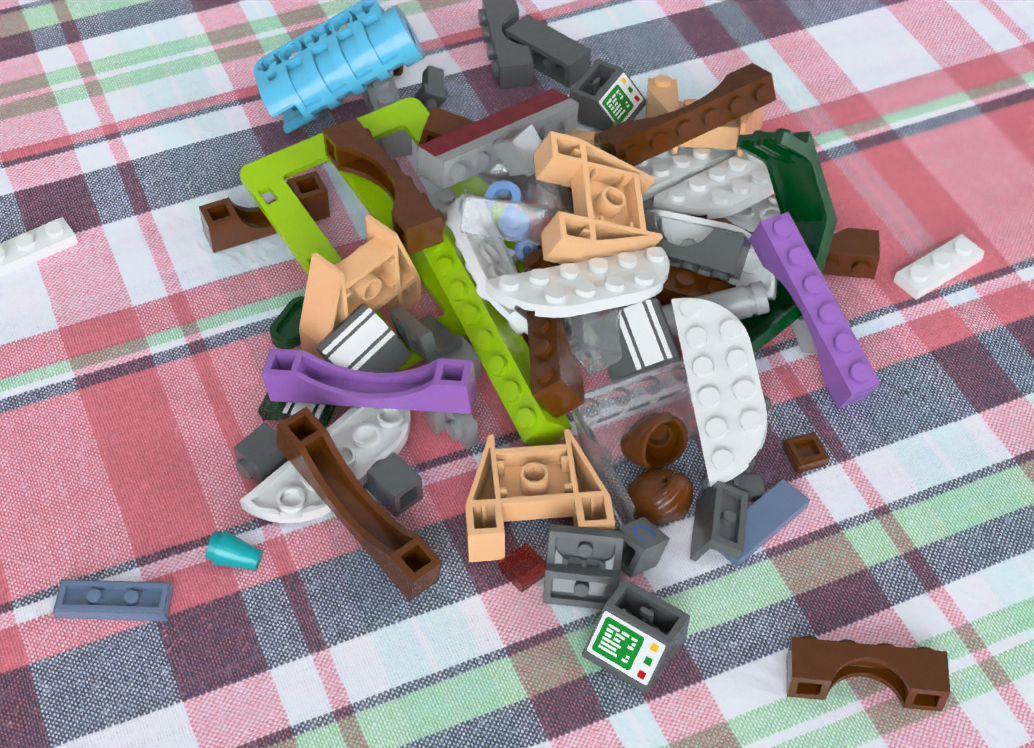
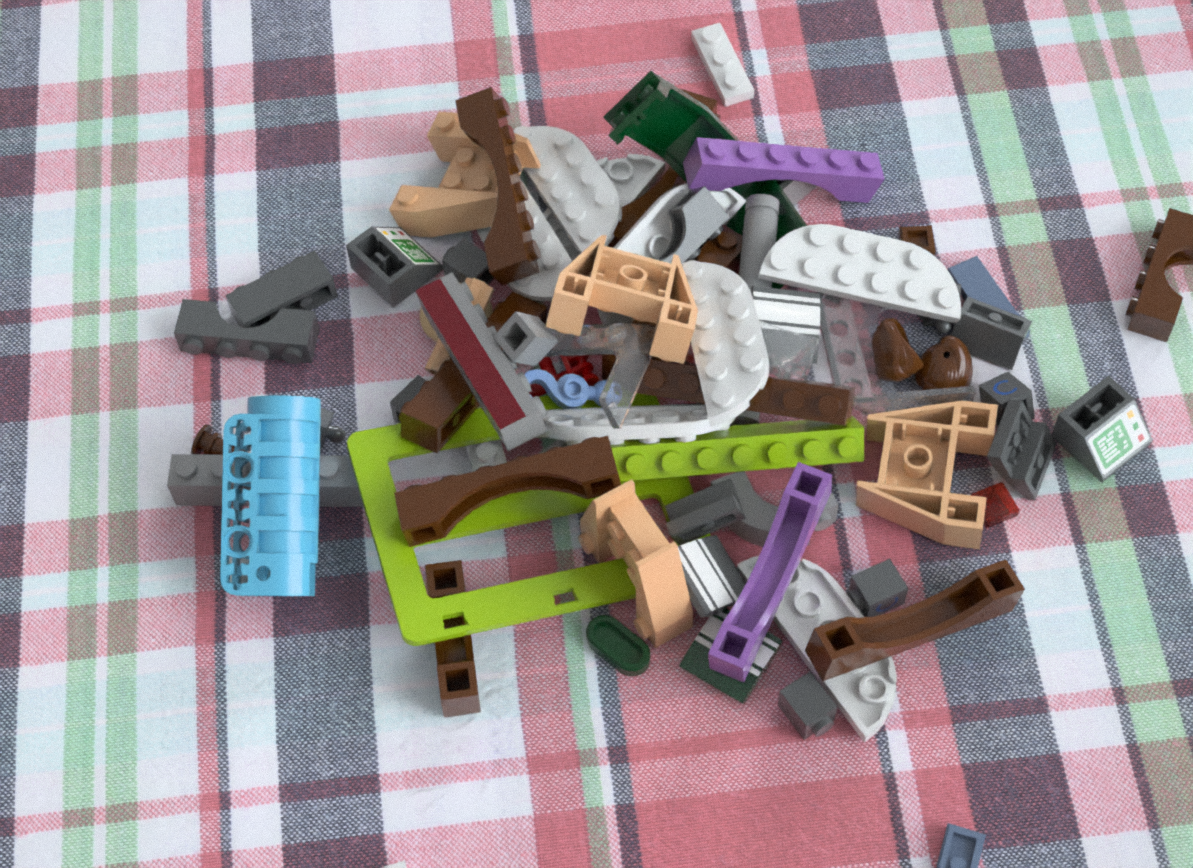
camera: 70 degrees left, 10 degrees up
(232, 551) = (923, 759): teal cone -> none

